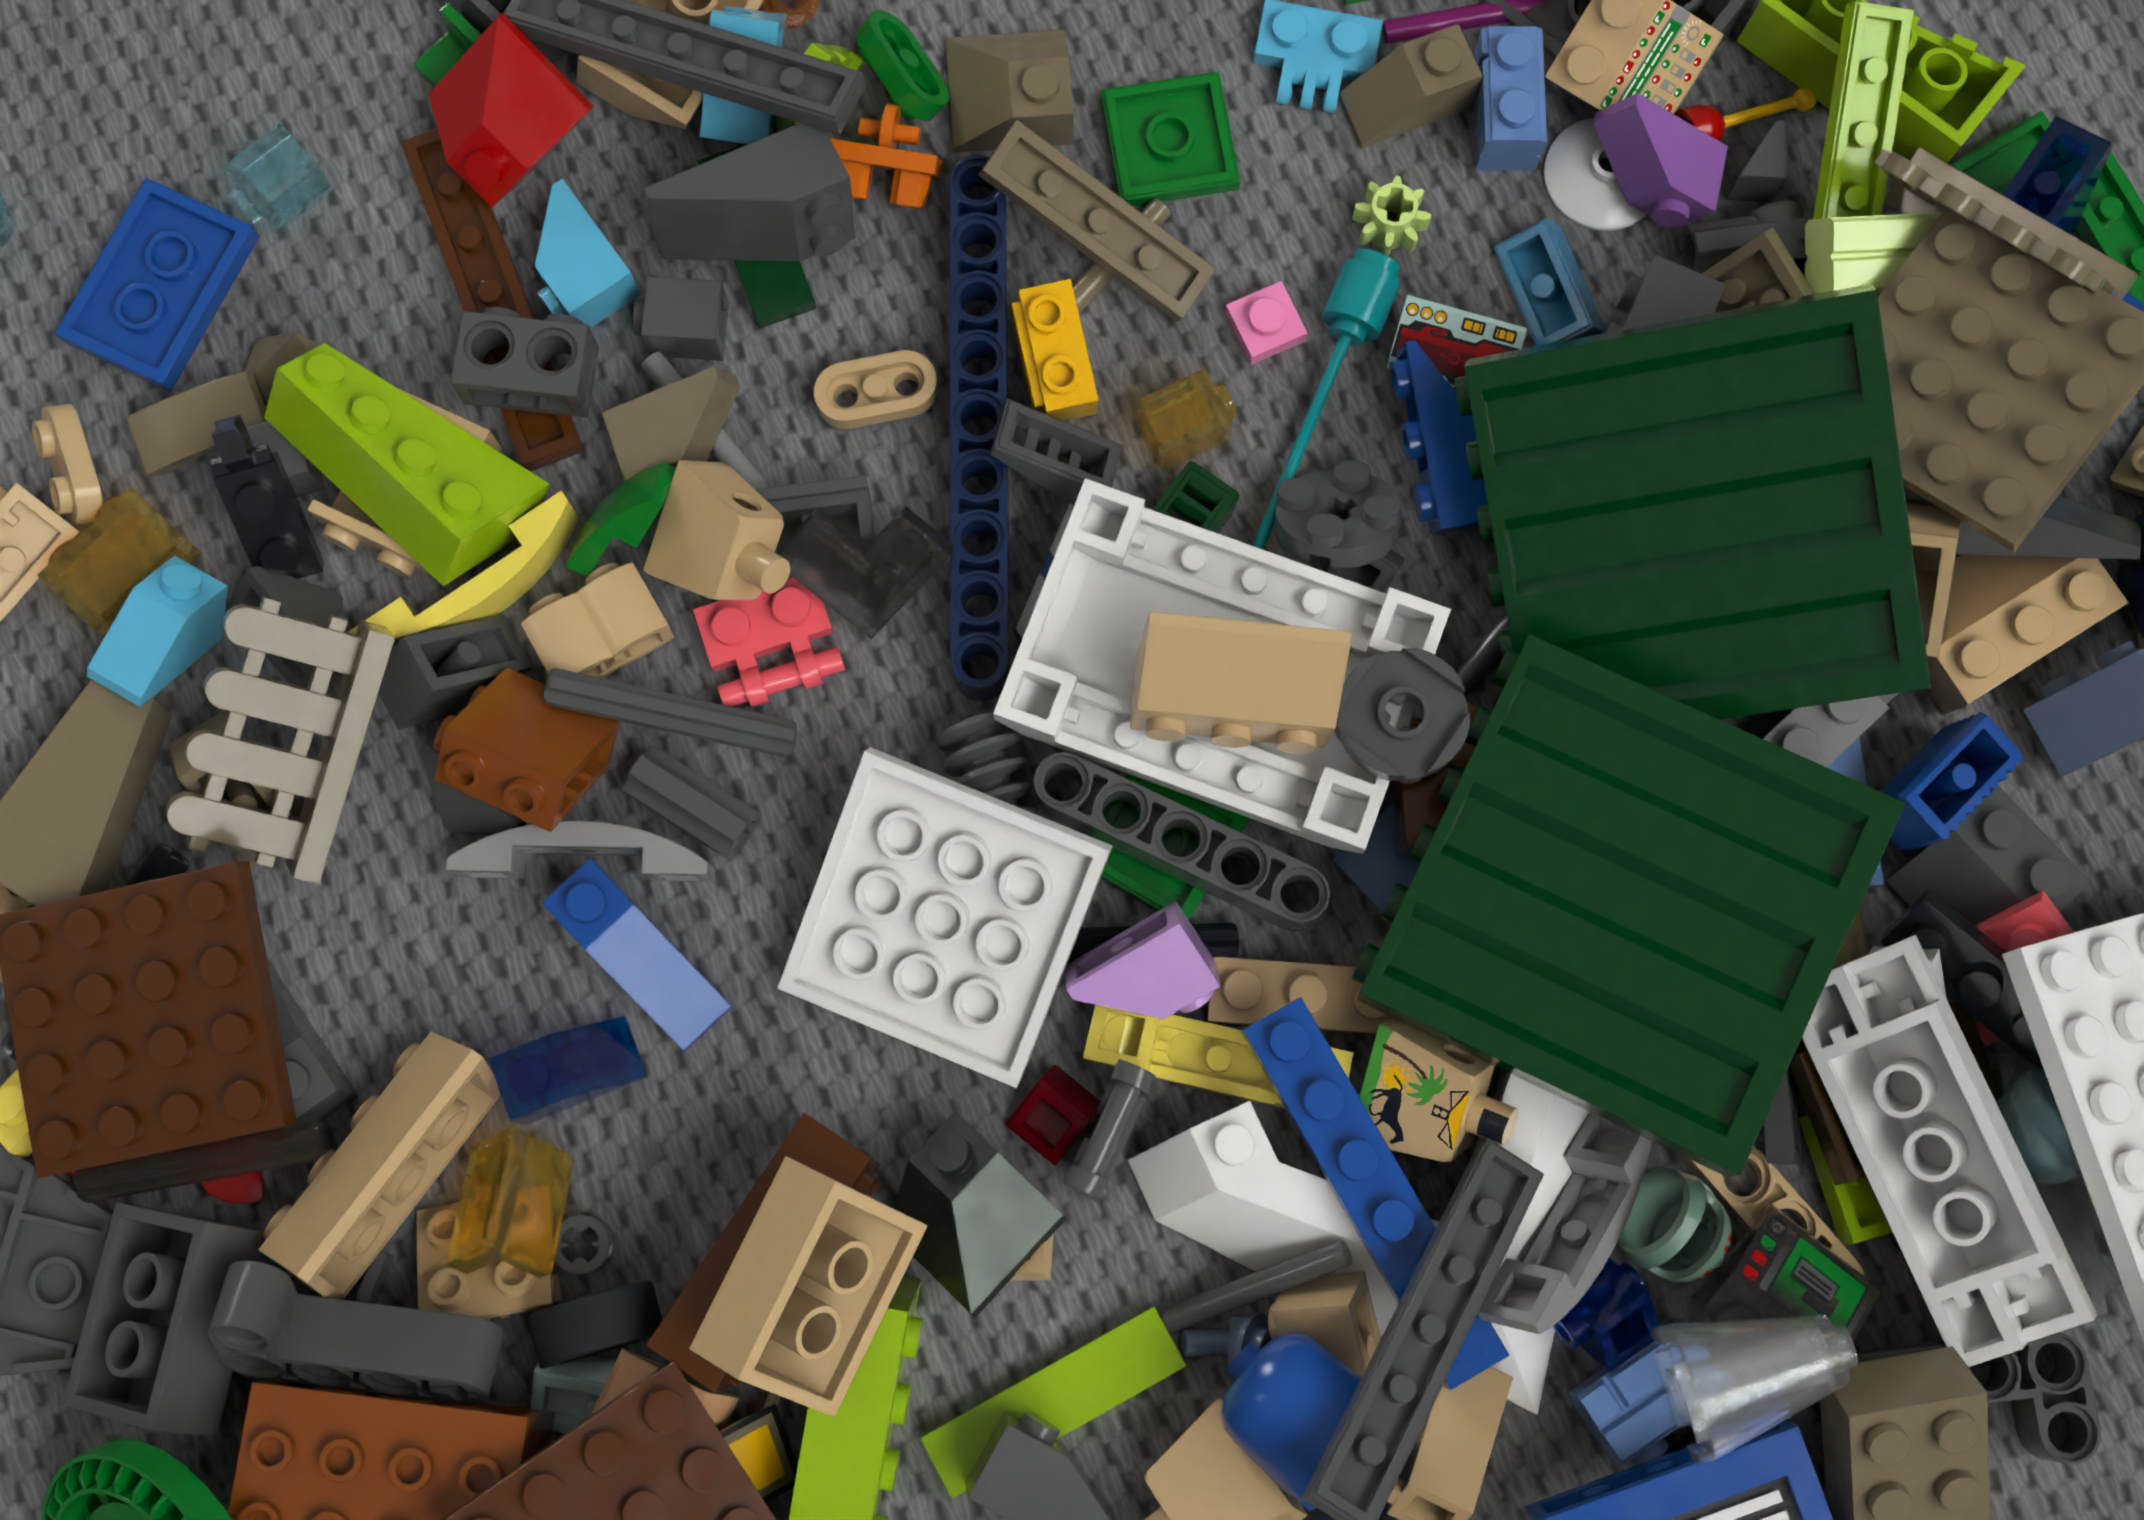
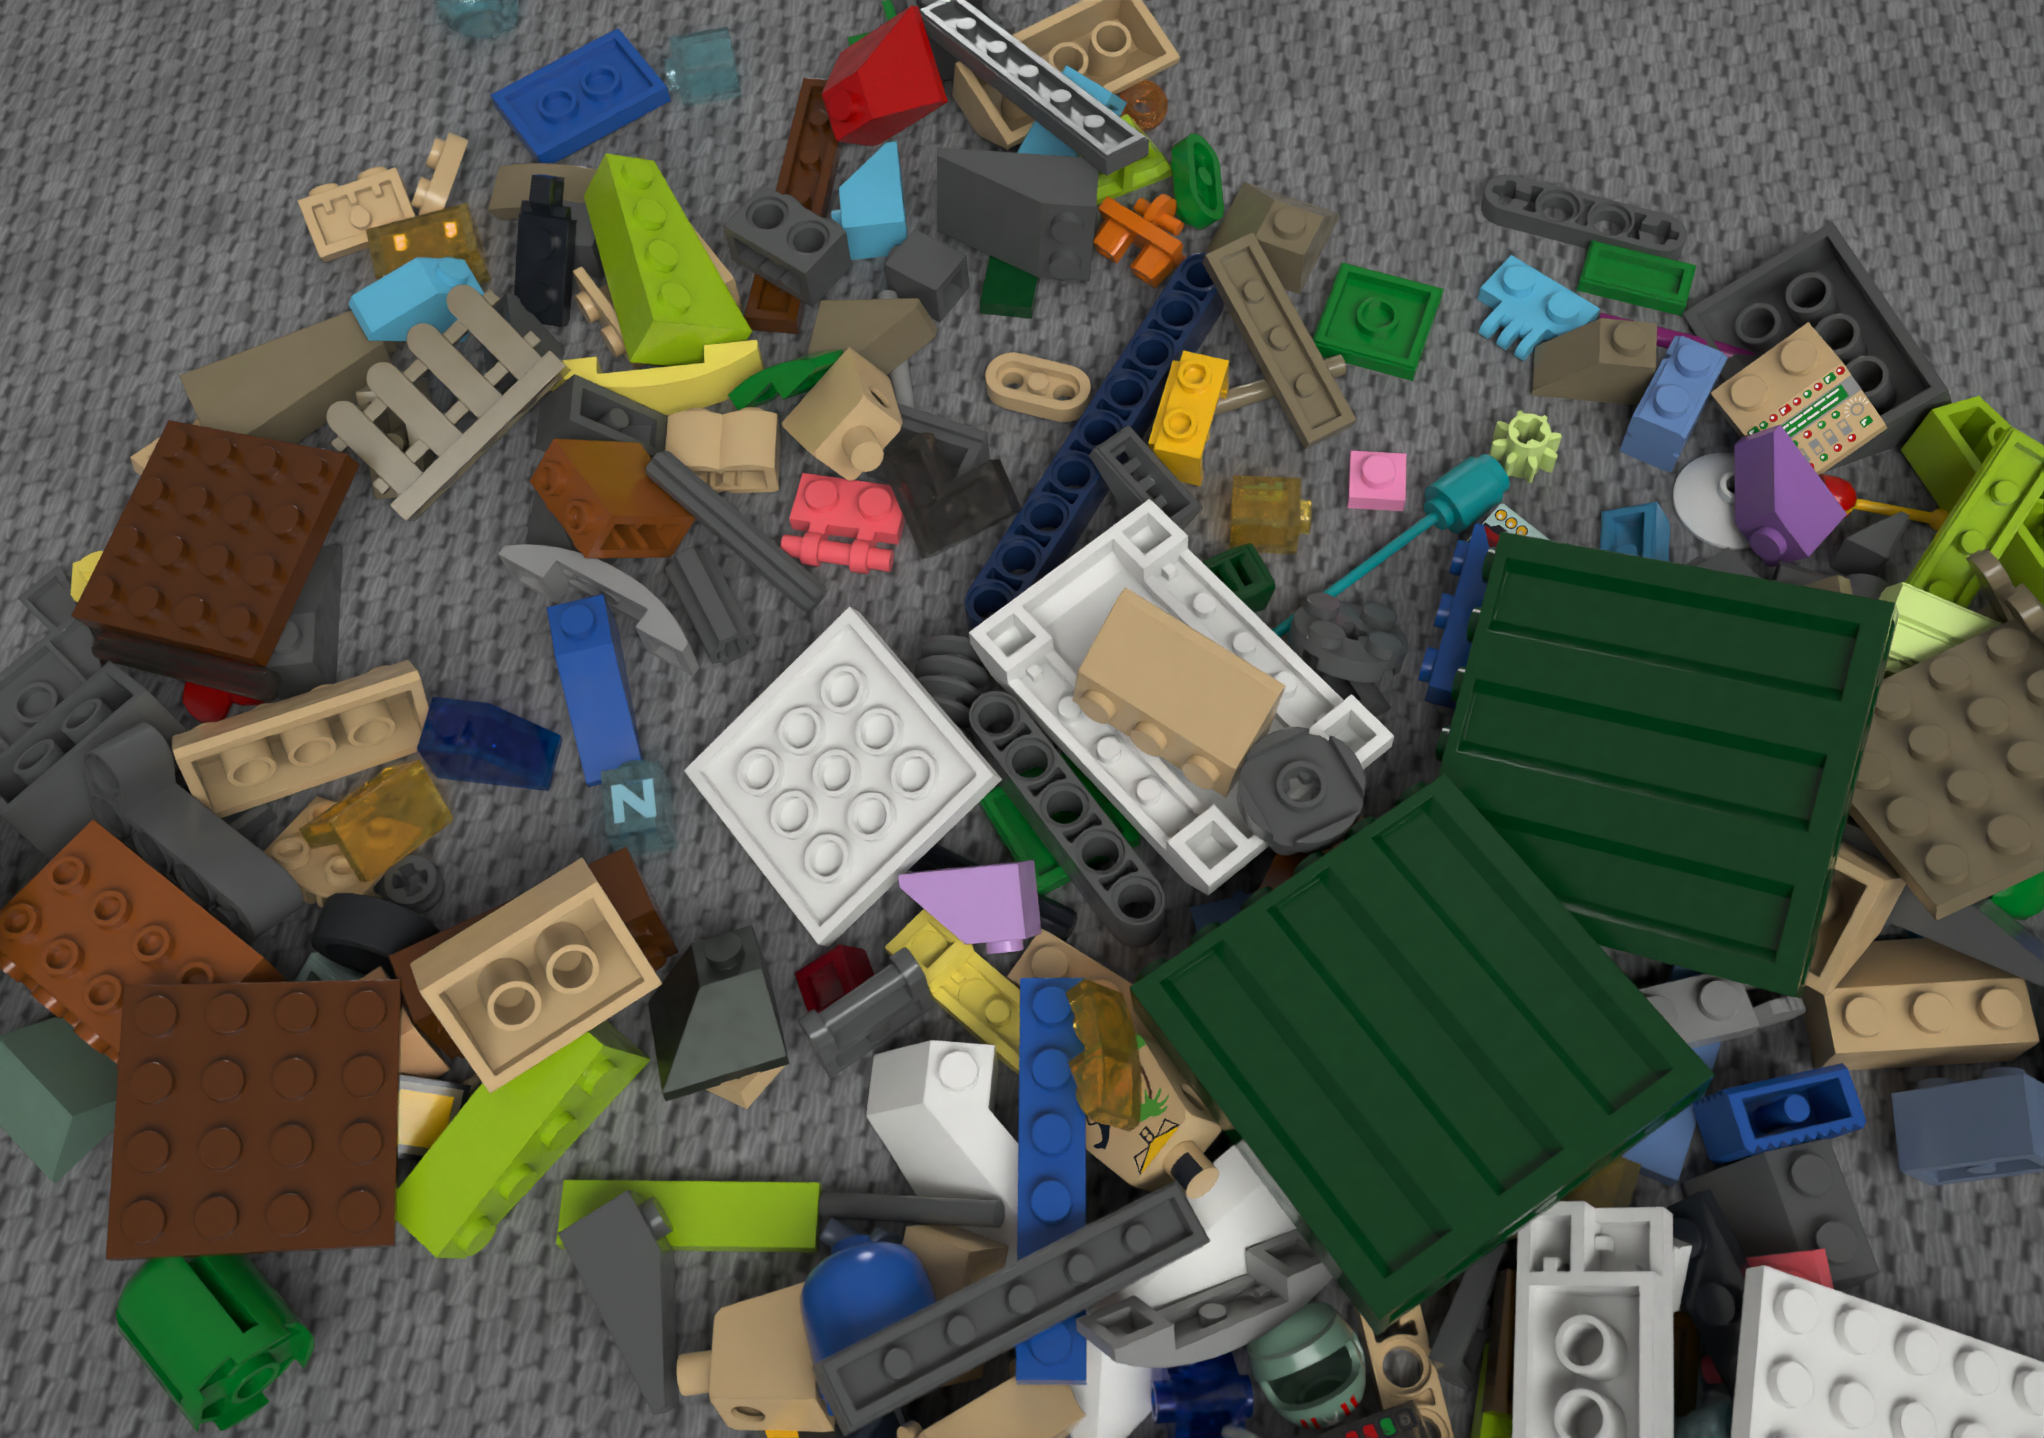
camera: 35 degrees right, 15 degrees down
(758, 1049) = (639, 808): none -> clear light blue brick
(1382, 1080) = (1110, 1066): none -> clear yellow slope

